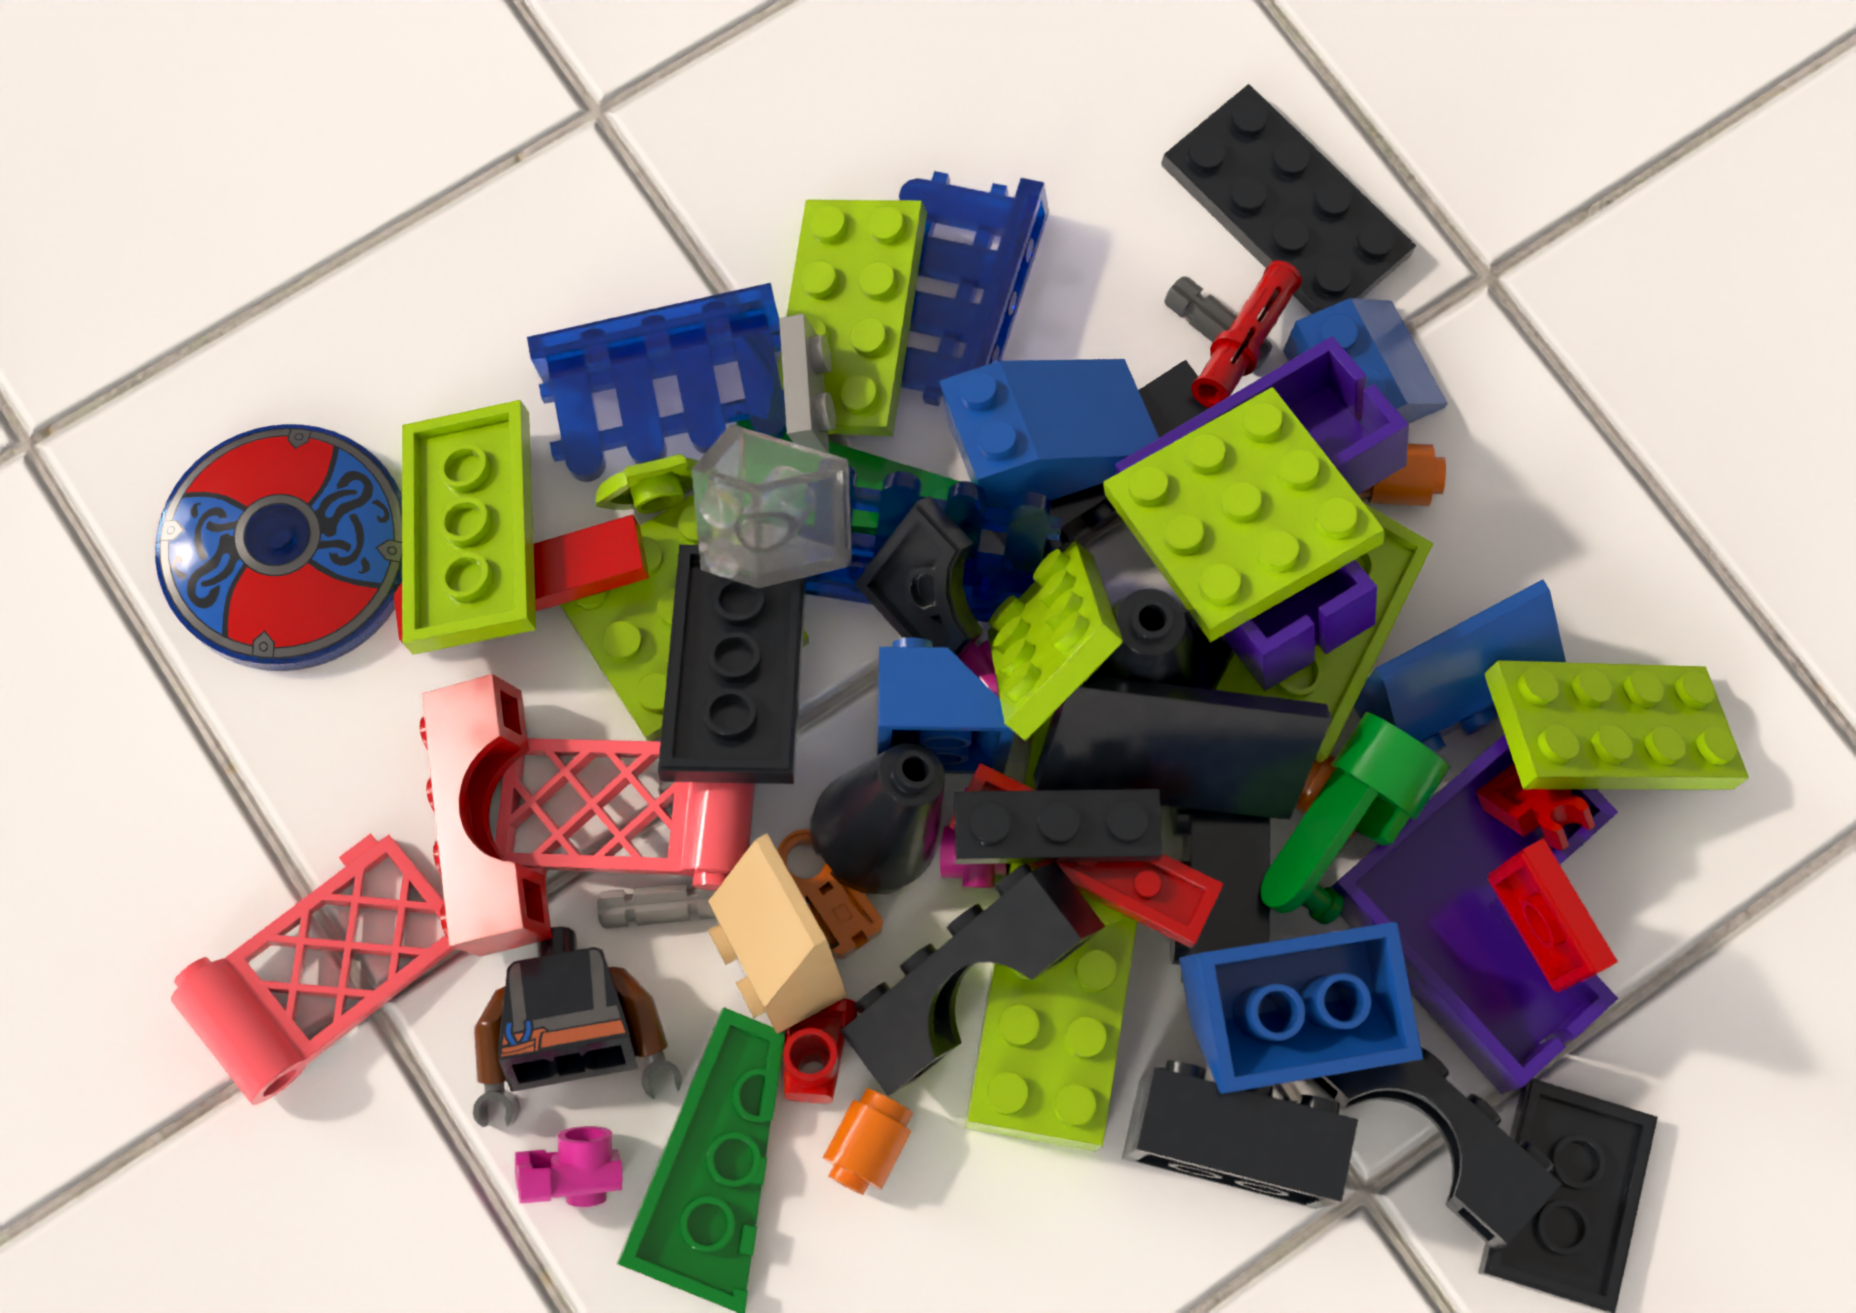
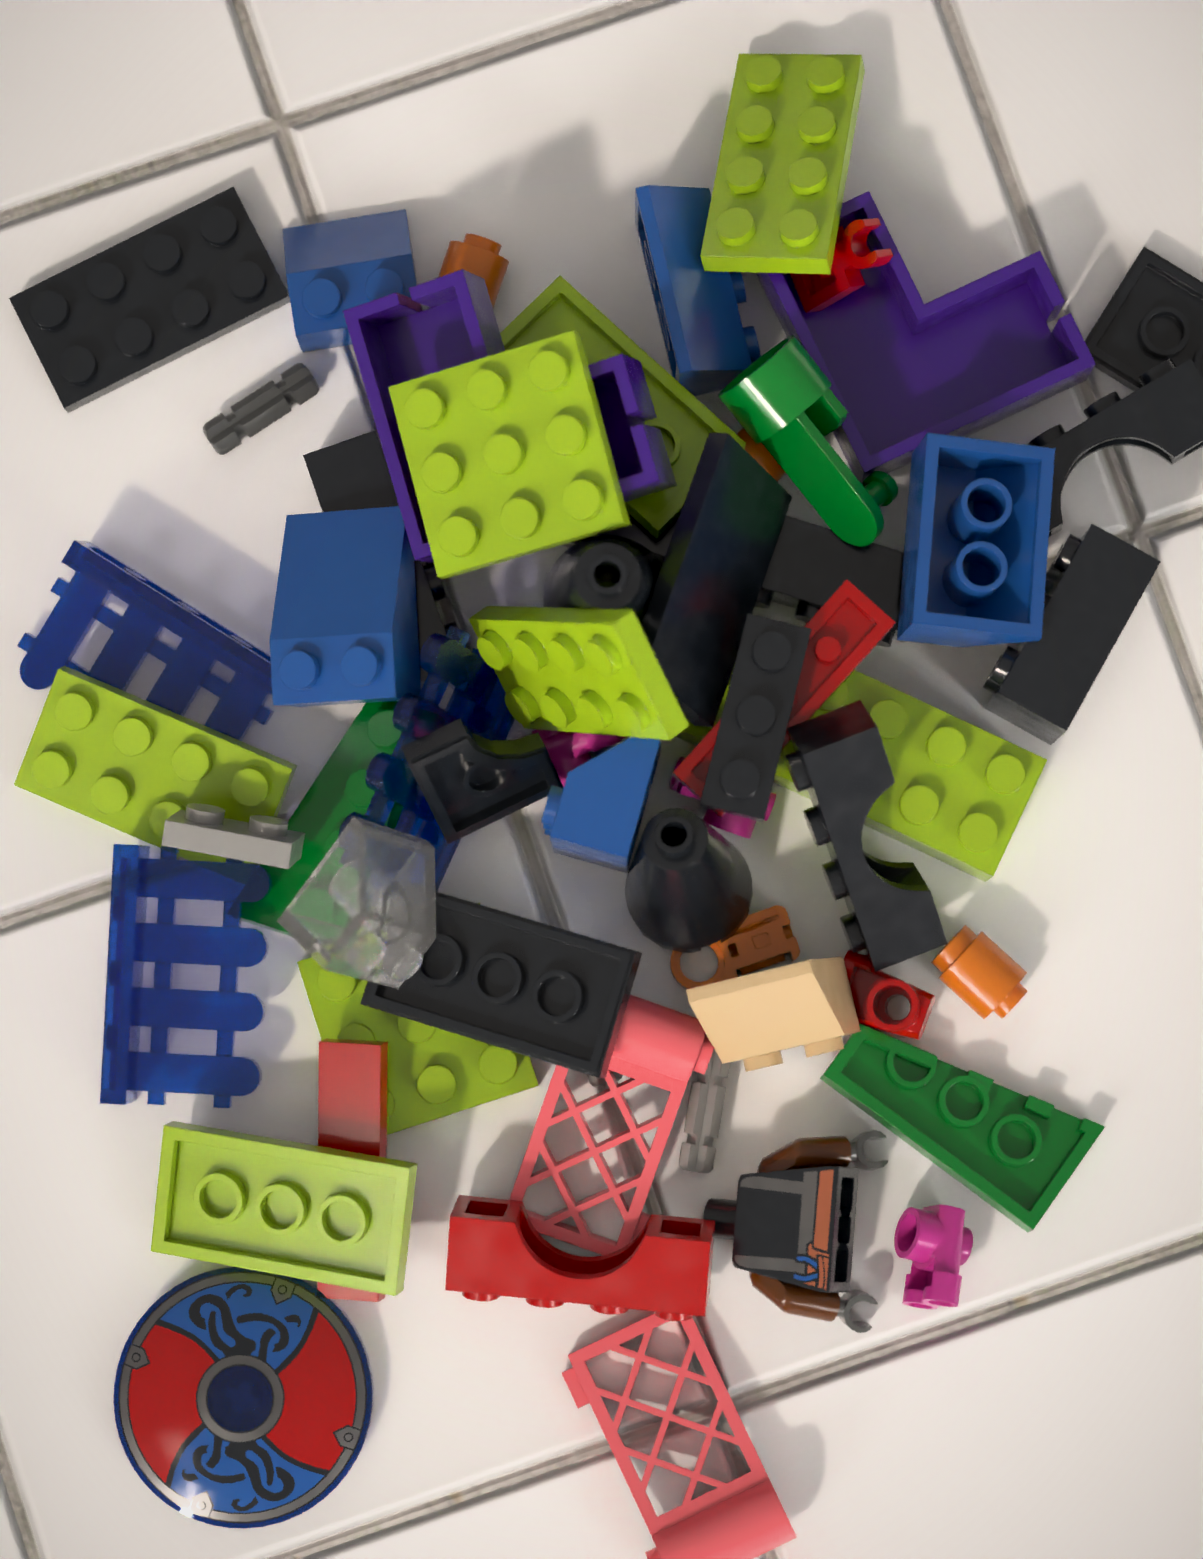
camera: 65 degrees left, 10 degrees up
(648, 485) = (287, 1015): lime animal -> none
(1221, 373) = (308, 401): red pin -> none
(1551, 917) = (961, 292): red tile -> none

